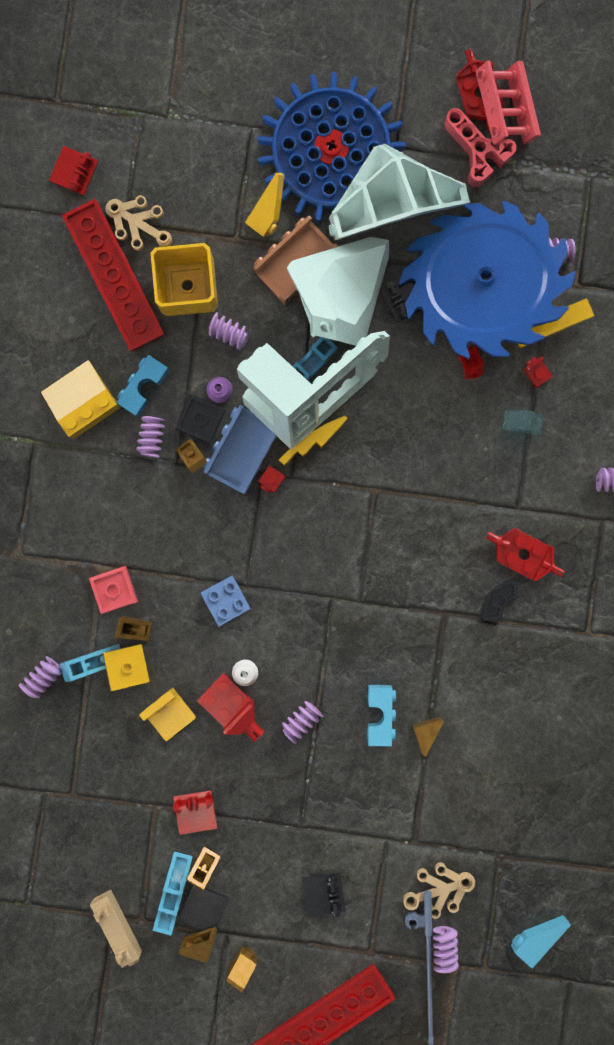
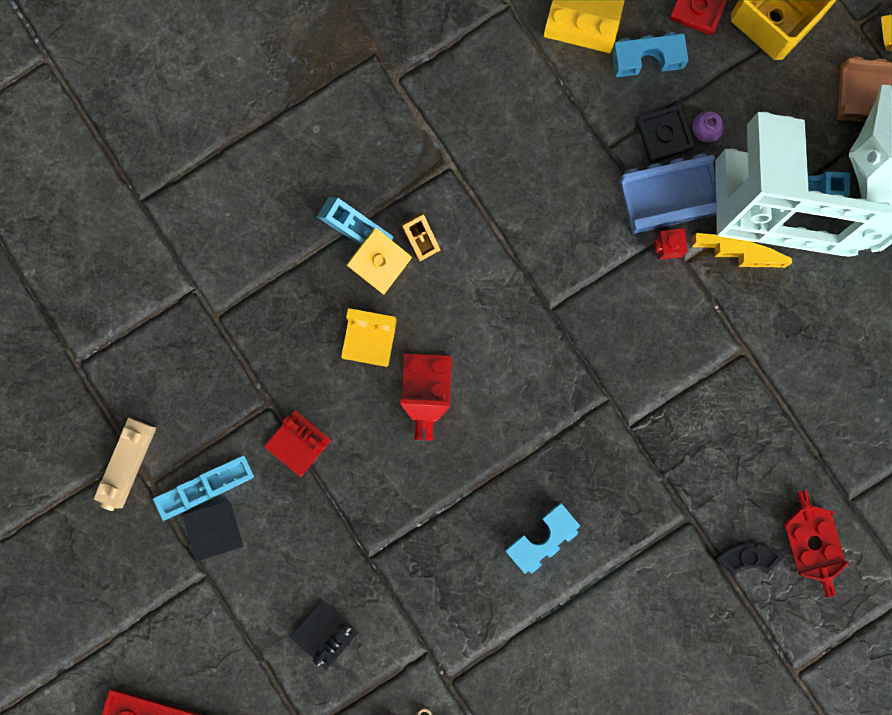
camera: 50 degrees right, 5 degrees down
(41, 679) = (300, 192): lavender piece -> none
(113, 590) = (438, 189): coral tile -> none
(150, 436) = (610, 98): lavender piece -> none
(191, 455) = (626, 153): pearl gold slope -> none
(198, 945) = (175, 555): pearl gold slope -> none
(202, 868) = (252, 495): slope -> none
(225, 600) = (520, 299): medium blue hinge -> none
(228, 332) = (768, 89): lavender piece -> none
(241, 968) = (189, 615): slope -> none
(242, 667) = (464, 382): white cone -> none
(301, 721) = (471, 467): lavender piece -> none
(427, 732) = (563, 598): pearl gold slope -> none

